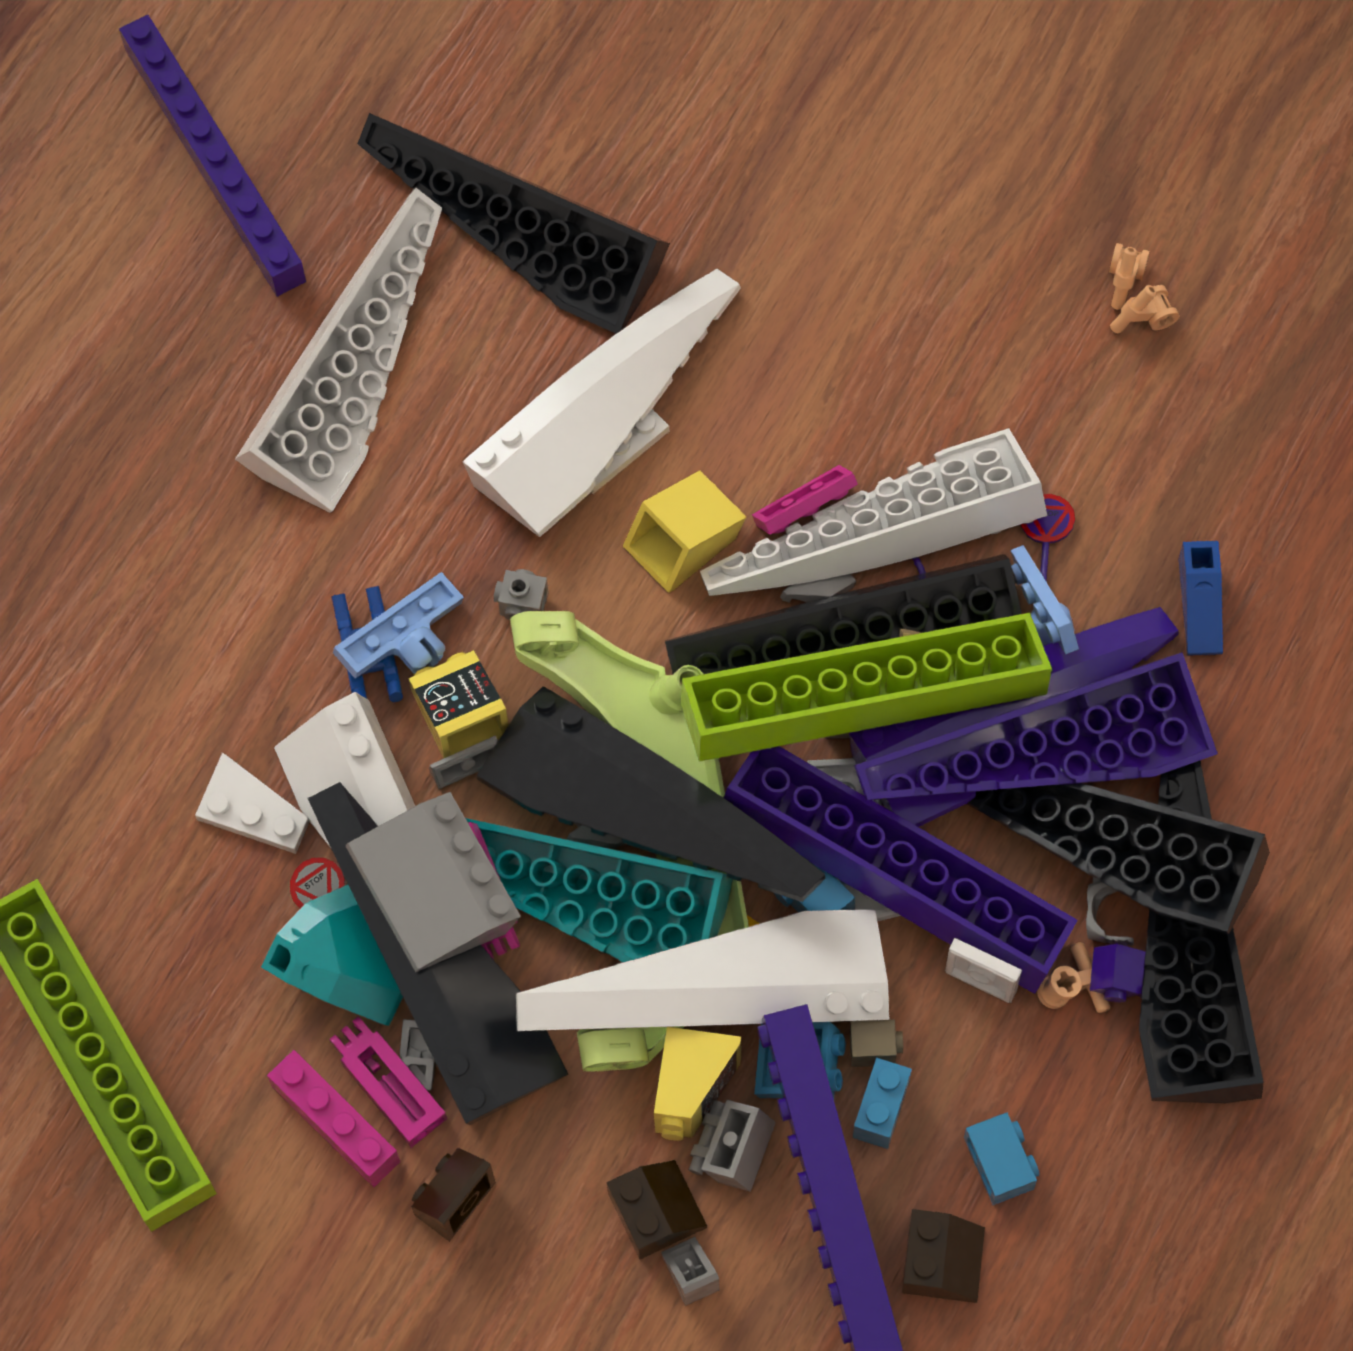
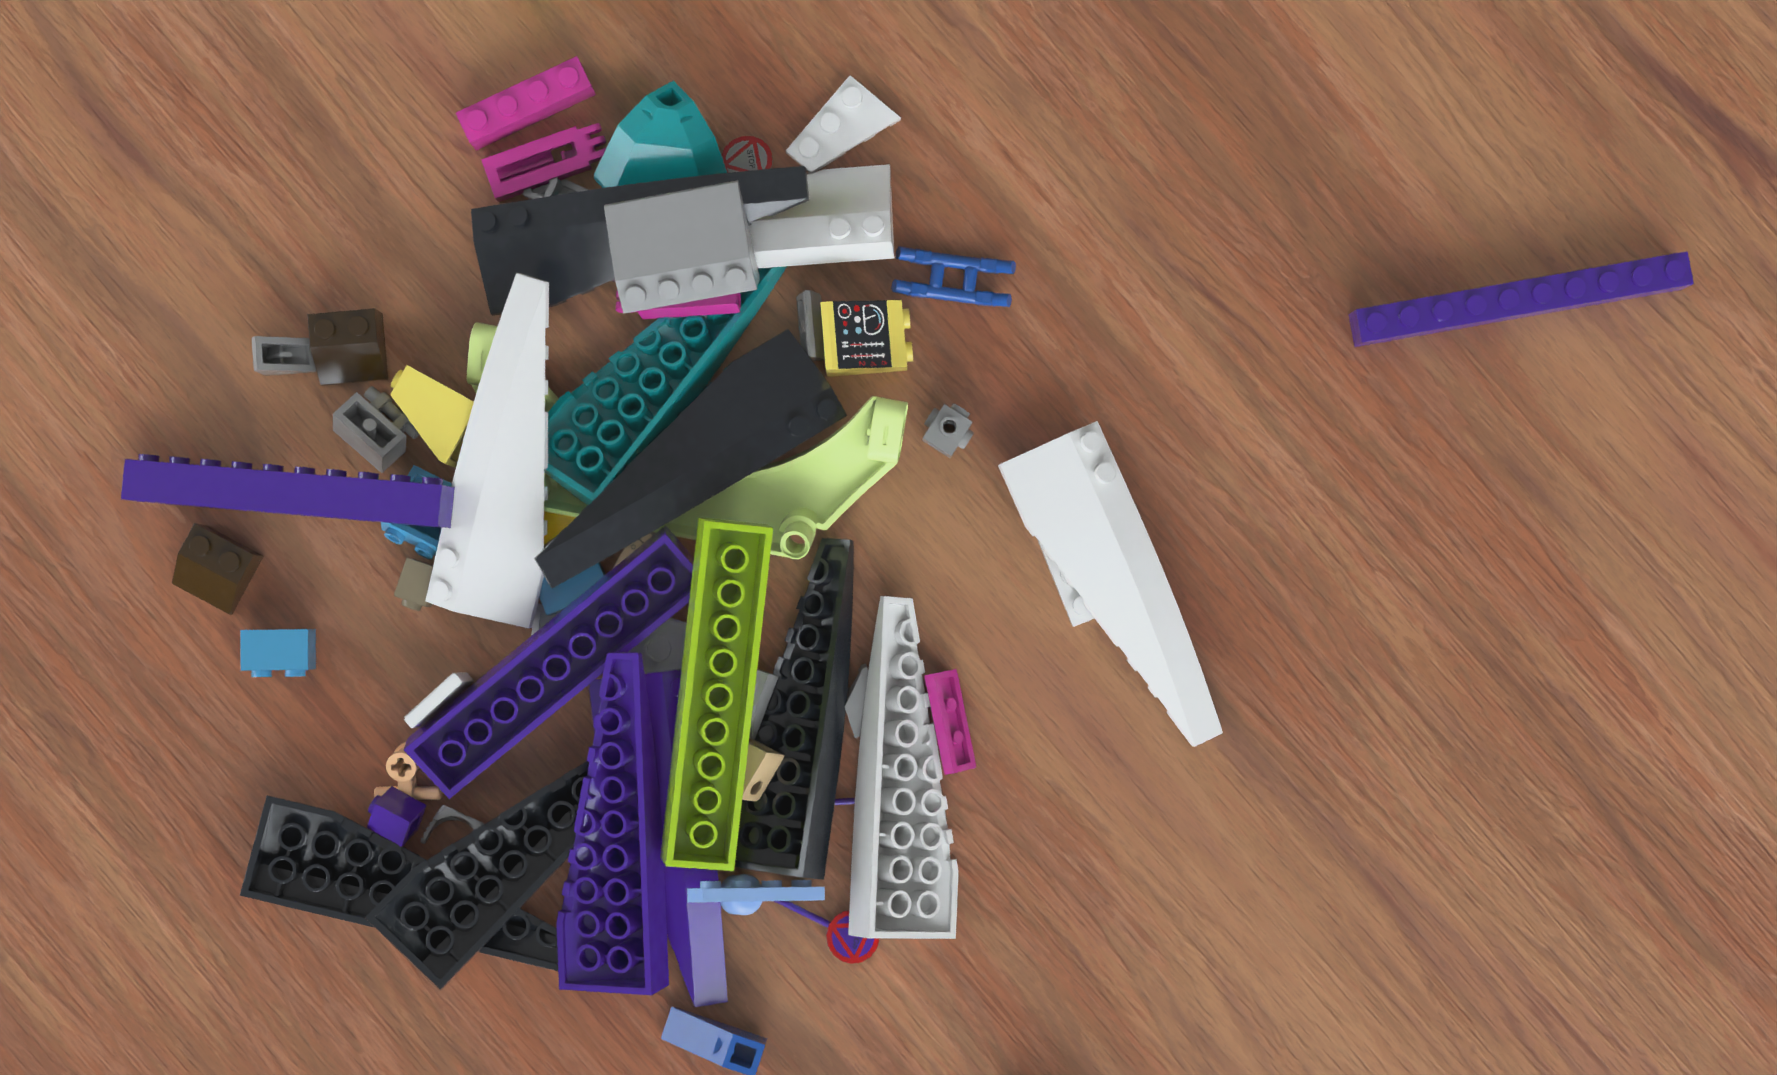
camera: 110 degrees right, 20 degrees up
(330, 400) = (1216, 325): white wedge -> none
(403, 630) = (954, 312): light blue plate -> none
(453, 1192) = (421, 179): dark brown slope -> none
(558, 245) = (1296, 598): black wedge -> none
(682, 529) = (960, 601): light yellow slope -> none
(882, 1103) = (361, 568): dark azure brick -> none

